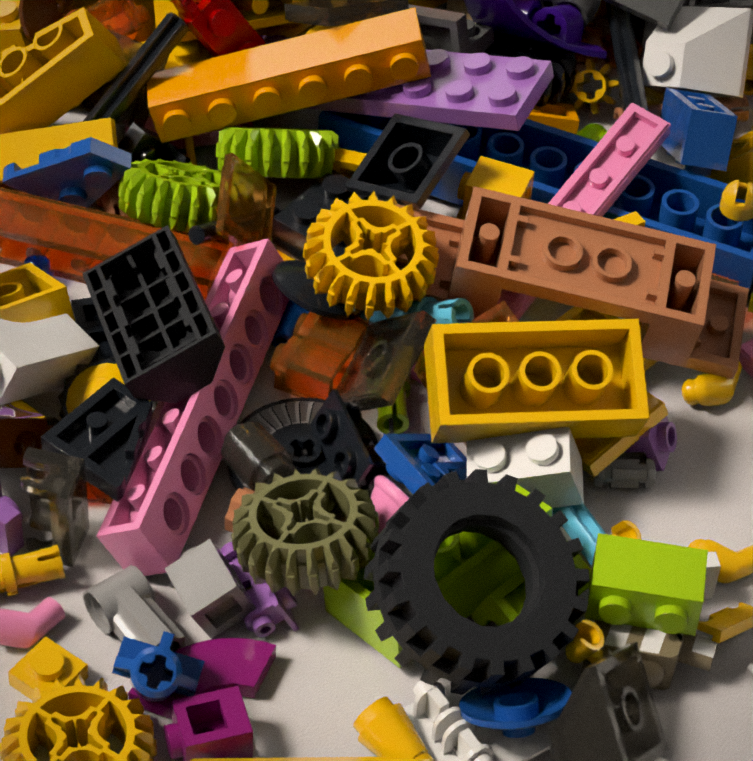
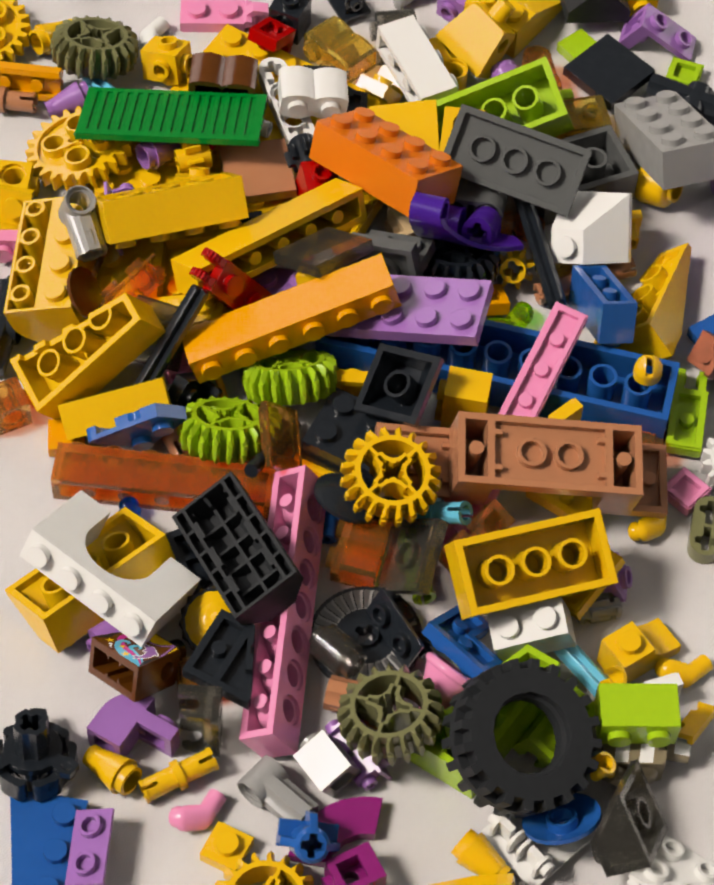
camera: 10 degrees left, 10 degrees up
(669, 516) = (637, 648): none -> yellow arch

